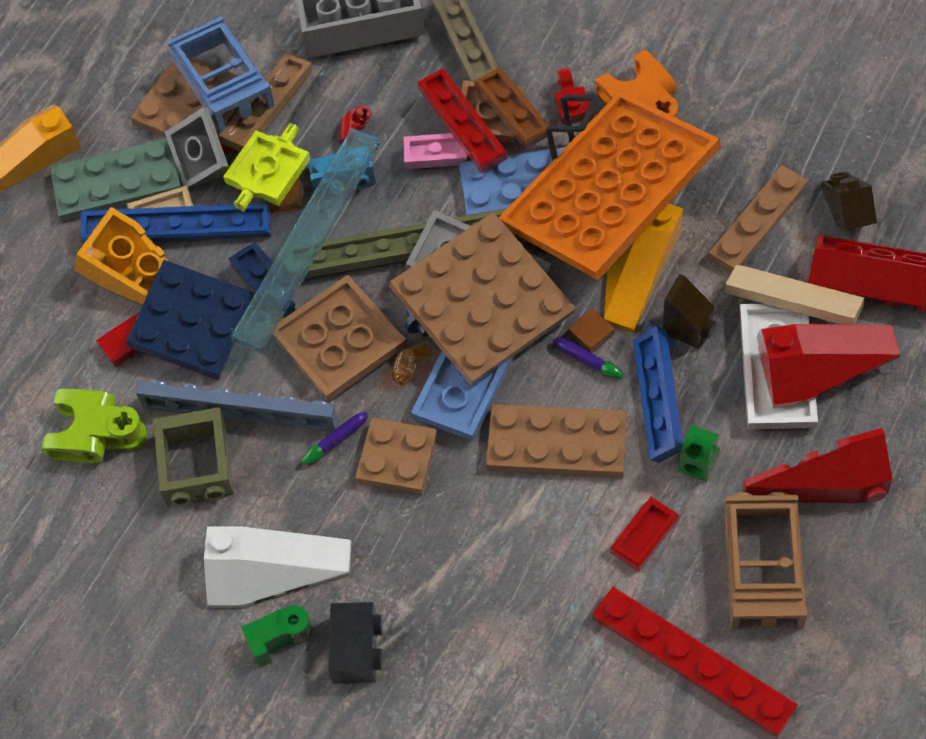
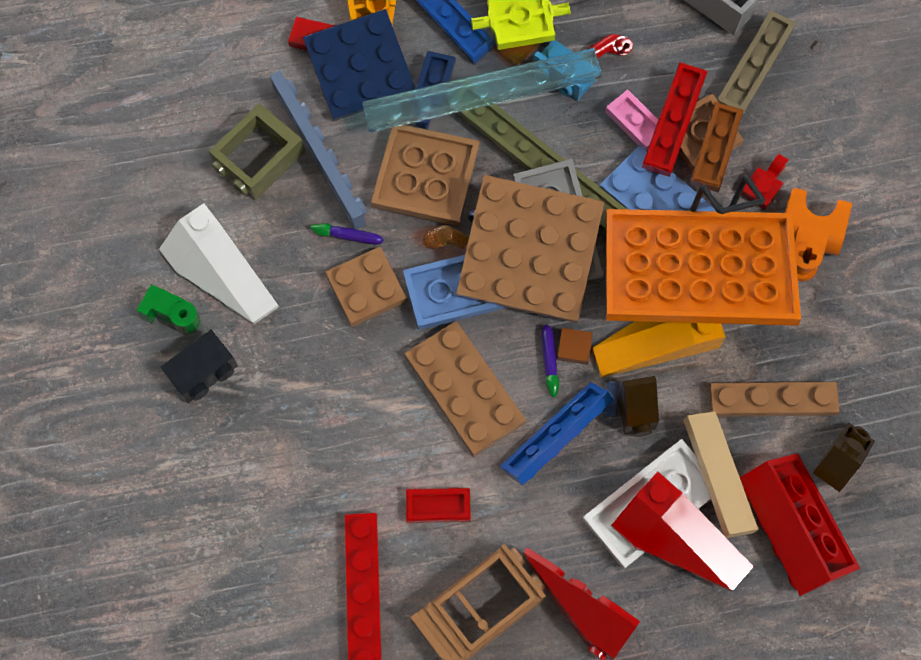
camera: 45 degrees right, 10 degrees up
(95, 428) = (229, 69): lime piece -> none
(699, 450) = (528, 498): green leg -> none

